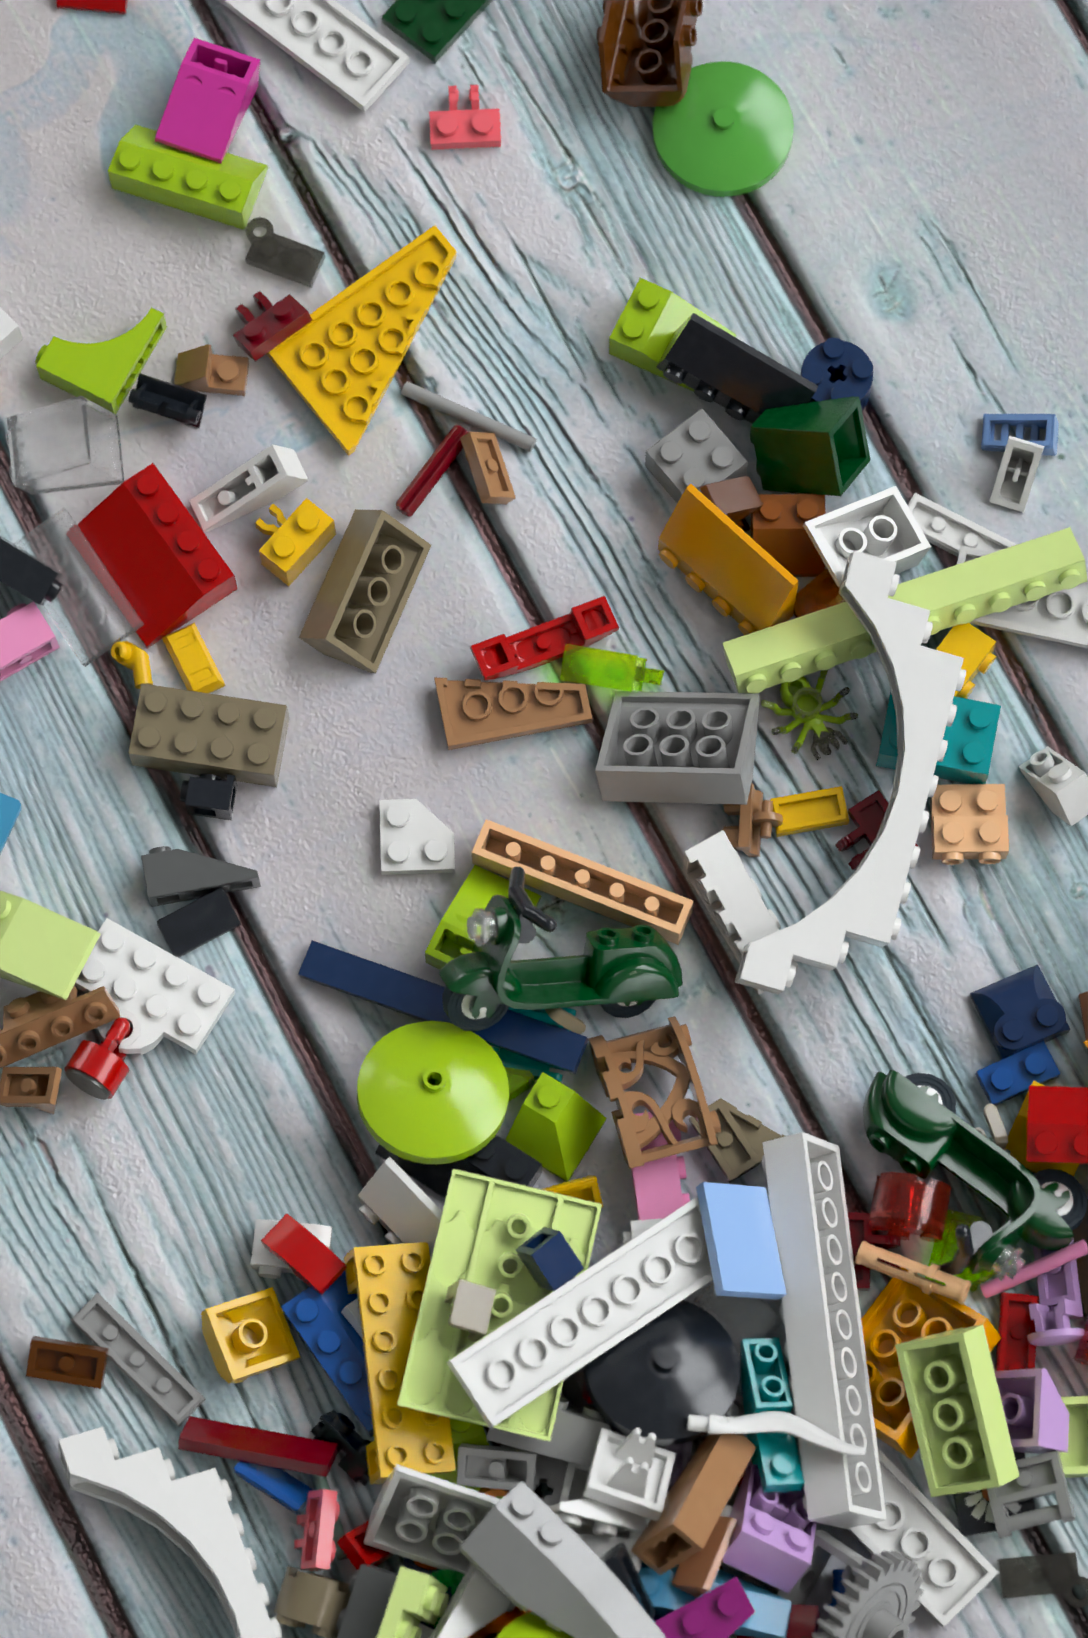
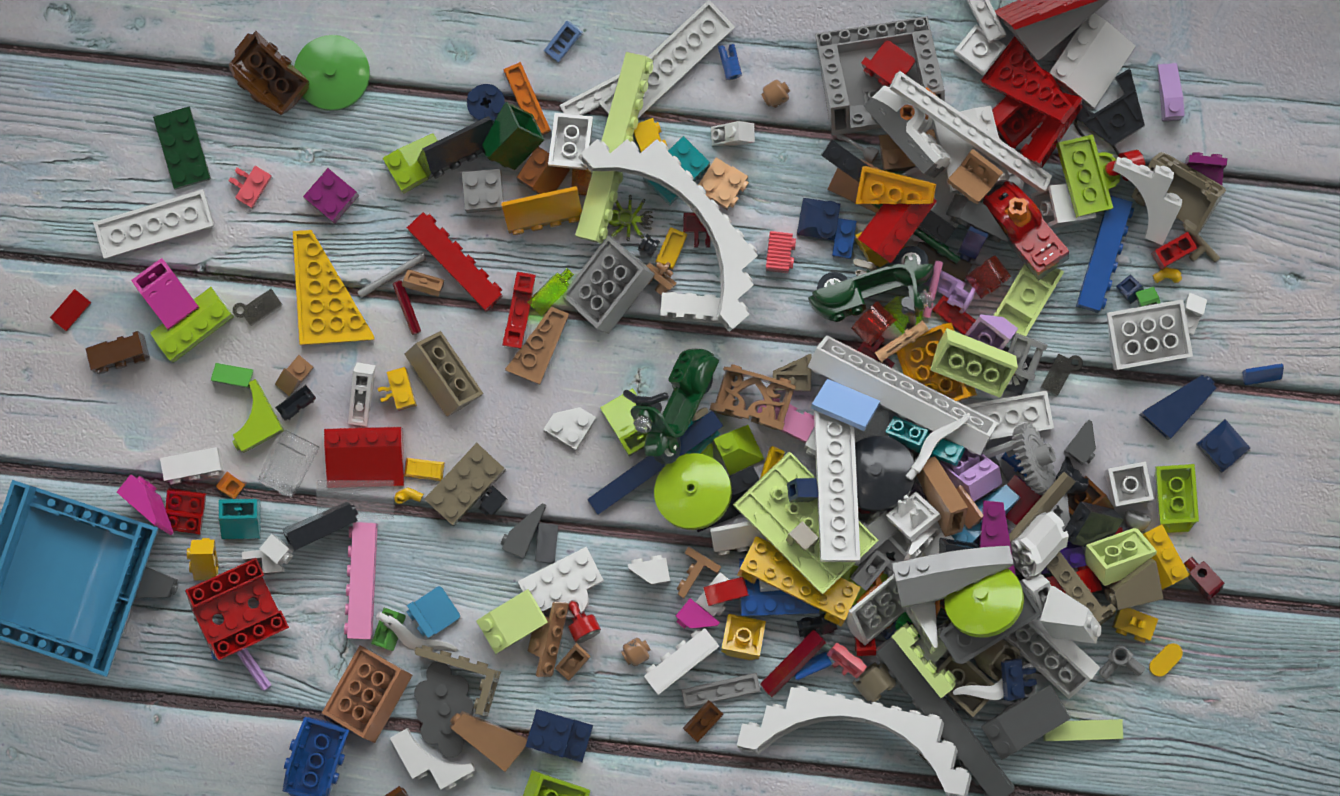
camera: 55 degrees left, 10 degrees up
(72, 95) = (117, 353): none -> reddish brown wedge
(112, 1179) = (636, 651): none -> medium nougat head
(142, 1260) = (681, 661): none -> white slope
(149, 280) = (232, 375): none -> bright green slope
(231, 1235) = (695, 616): none -> dark pink slope
(261, 1117) = (651, 571): none -> white slope
(271, 327) = (292, 335): dark red hinge -> none
(307, 1187) = (694, 570): none -> medium nougat bracket
(529, 245) = (331, 195): none -> magenta brick
(555, 493) = (454, 261): none -> red brick
(582, 881) = (640, 366): light nougat brick -> none
(734, 498) = (514, 187): reddish brown slope -> none
(787, 771) = (648, 245): none -> black wheel
(893, 434) = (525, 95): none -> orange tile
(921, 983) = (779, 252): none -> coral brick
(1016, 474) = (582, 56): white slope -> none

